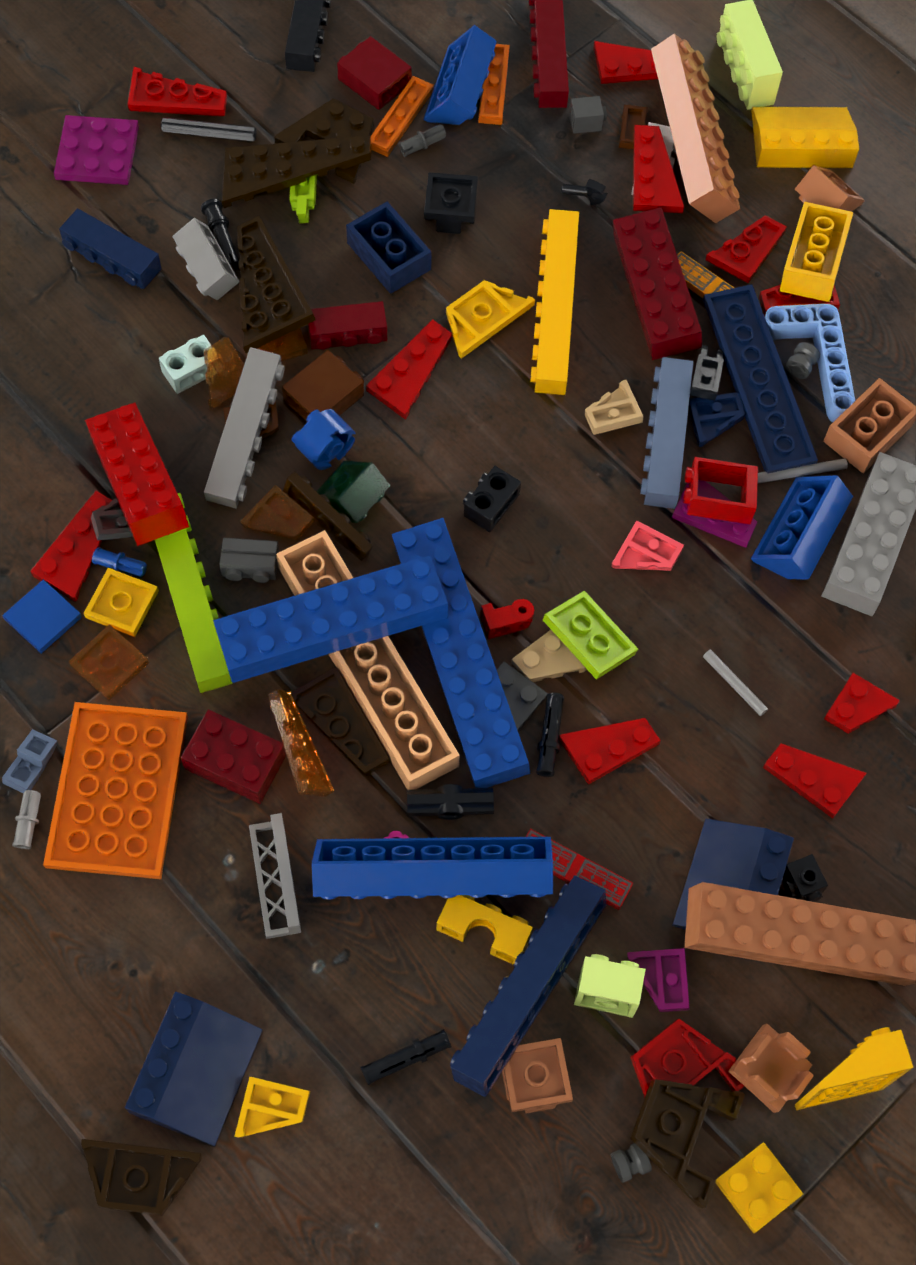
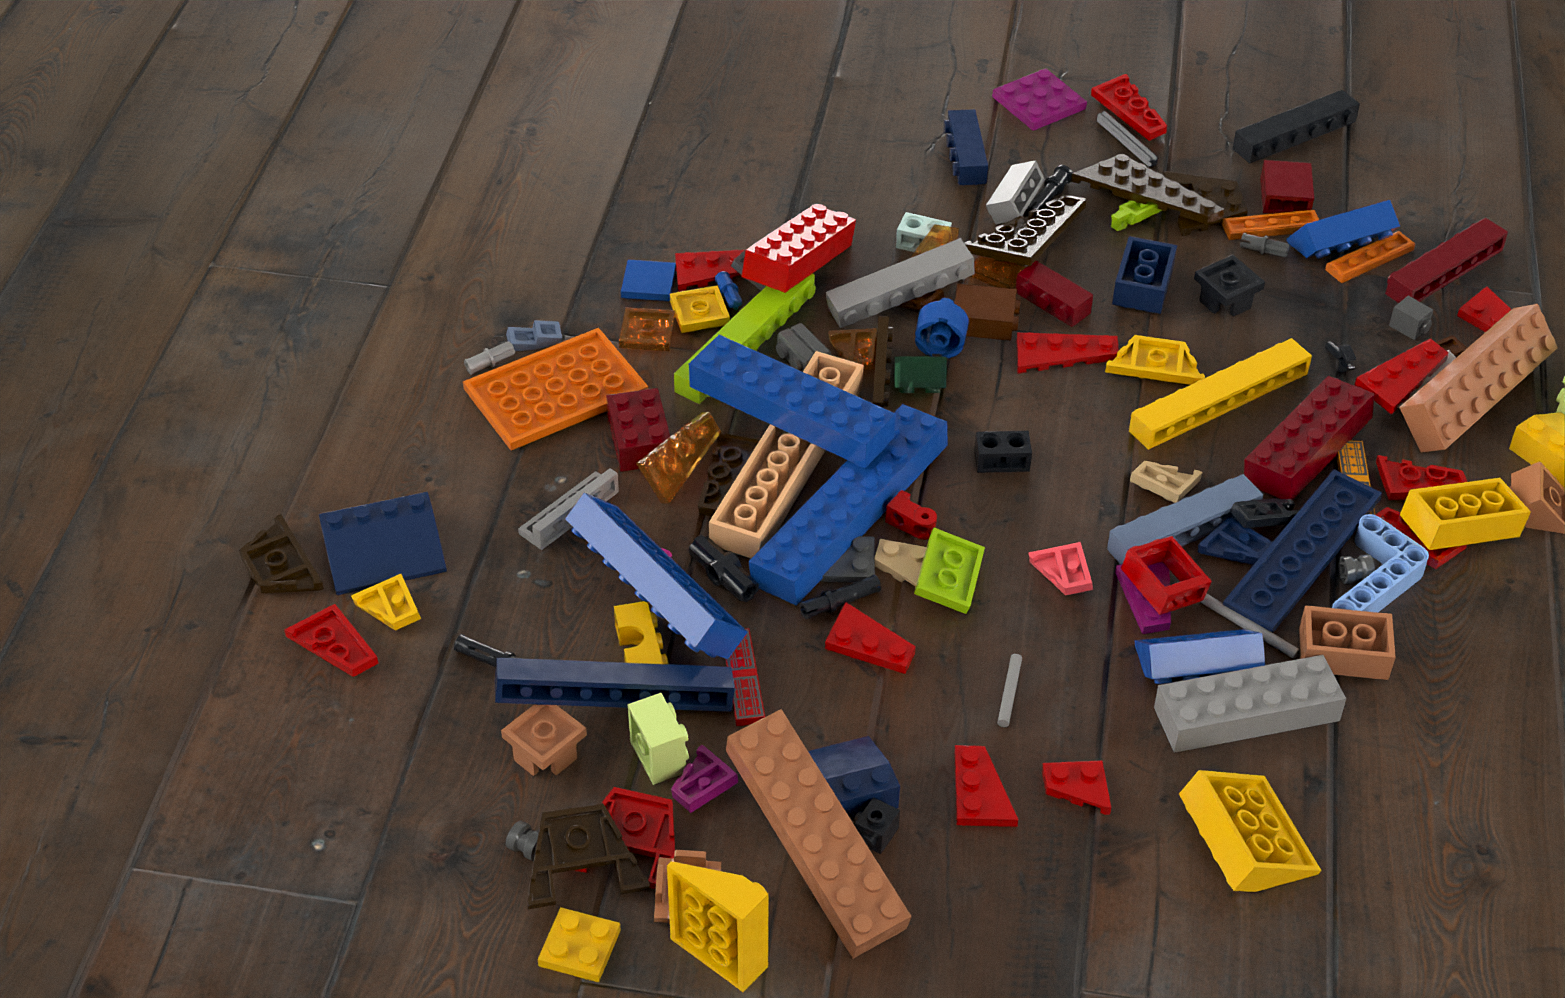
camera: 55 degrees right, 20 degrees down
(278, 1184) = (334, 640): none -> red wing

